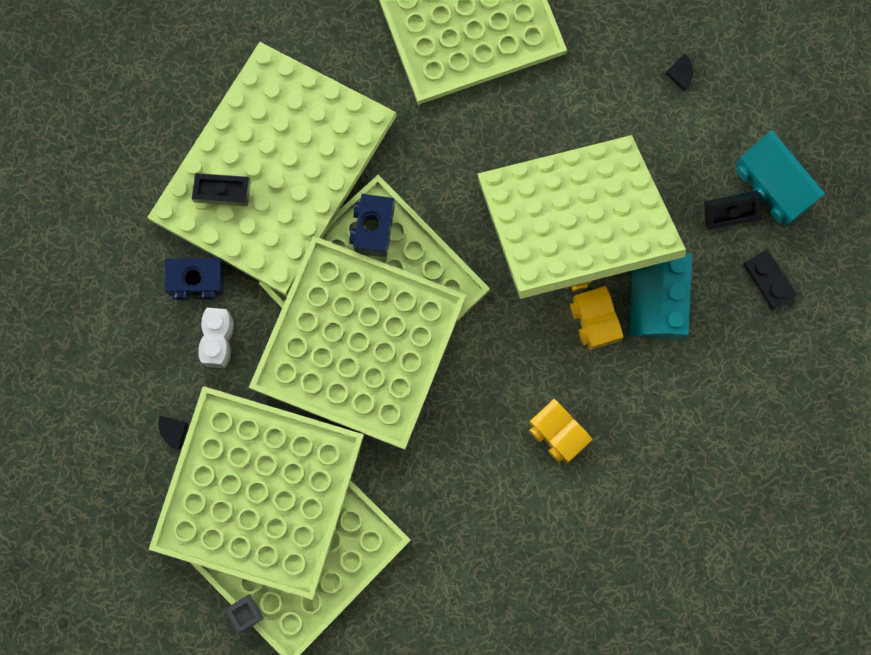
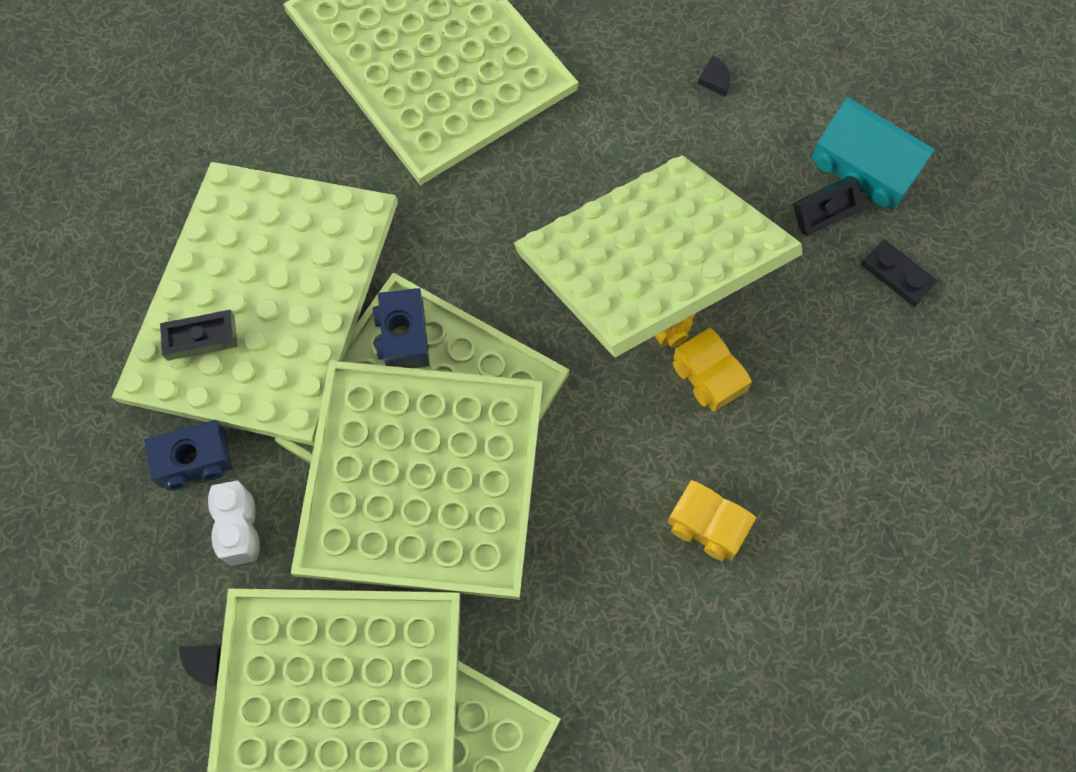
camera: 15 degrees left, 10 degrees down
(661, 300) = (780, 324): teal slope -> none

